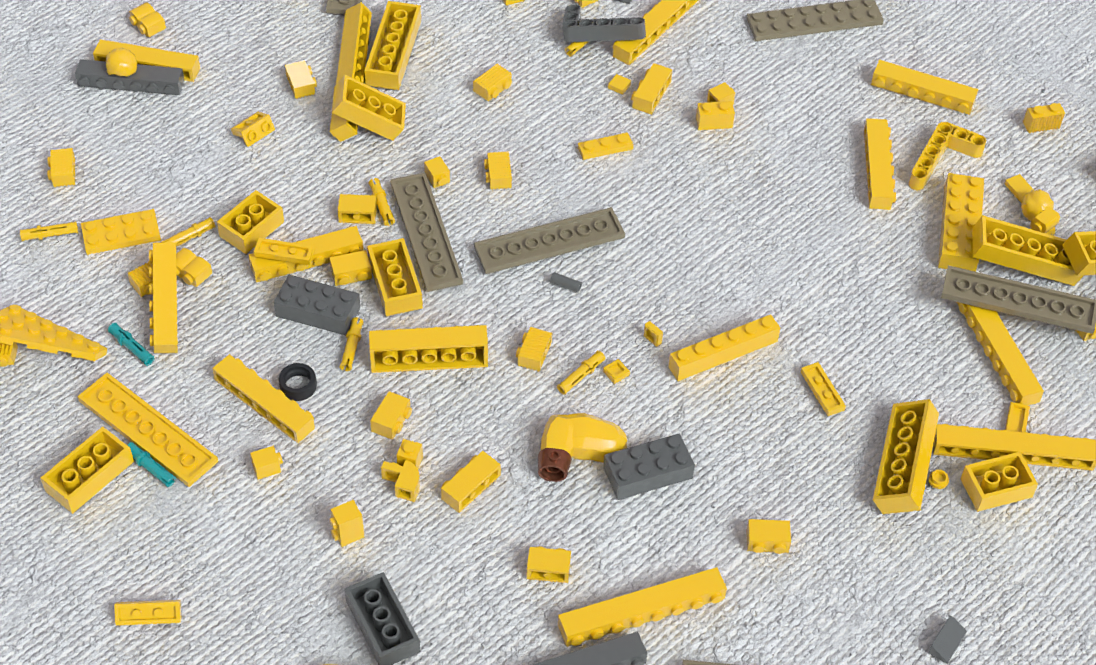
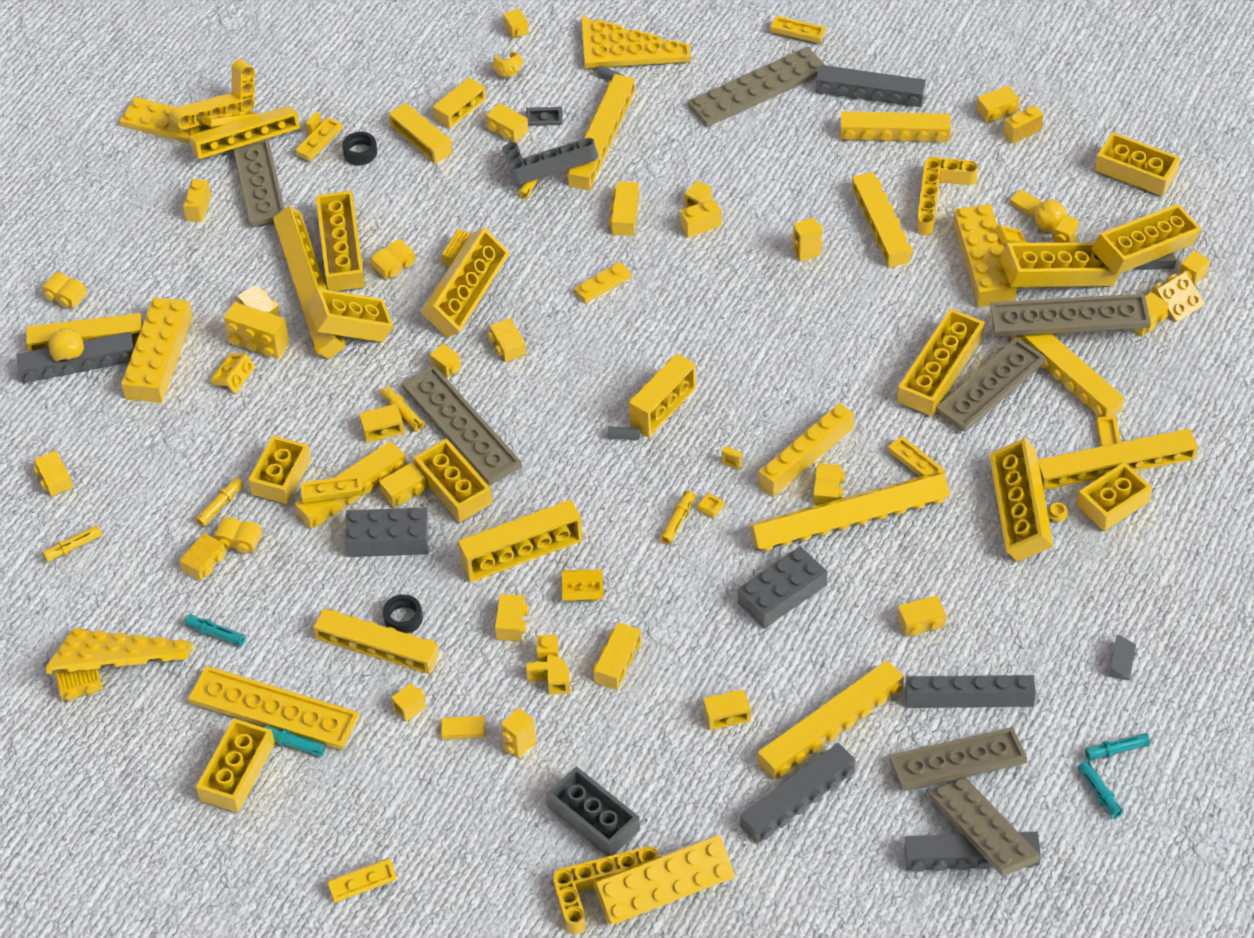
camera: 15 degrees left, 0 degrees up
(120, 231) = (146, 521): yellow plate -> none
(164, 298) = (231, 573): yellow brick -> none
(198, 91) = (157, 350): none -> yellow brick
(286, 98) = (256, 330): none -> yellow brick
(304, 501) = (463, 727): none -> yellow tile
(353, 337) = (437, 553): yellow pin -> none
(432, 73) = (393, 259): none -> yellow brick
(467, 406) = (582, 585): none -> yellow bracket
(482, 110) = (465, 282): none -> yellow brick
(534, 348) = (622, 508): yellow brick -> none
(549, 240) = (588, 396): dark tan plate -> none
(576, 437) = (701, 582): yellow piece -> none
(613, 258) = (662, 395): none -> yellow brick
(619, 84) = (589, 213): yellow tile -> none
(731, 385) = (828, 483): none -> yellow brick
(741, 415) = (849, 510): none -> yellow brick
(785, 623) = (970, 691): none -> dark grey brick
(802, 160) = (807, 239): none -> yellow brick
(881, 306) = (940, 362): none -> yellow brick
(916, 46) = (870, 85): none -> dark grey brick
(921, 340) = (990, 384): none -> dark tan plate
(991, 210) = (1009, 235): none -> yellow tile
(1026, 93) = (997, 104): none -> yellow brick

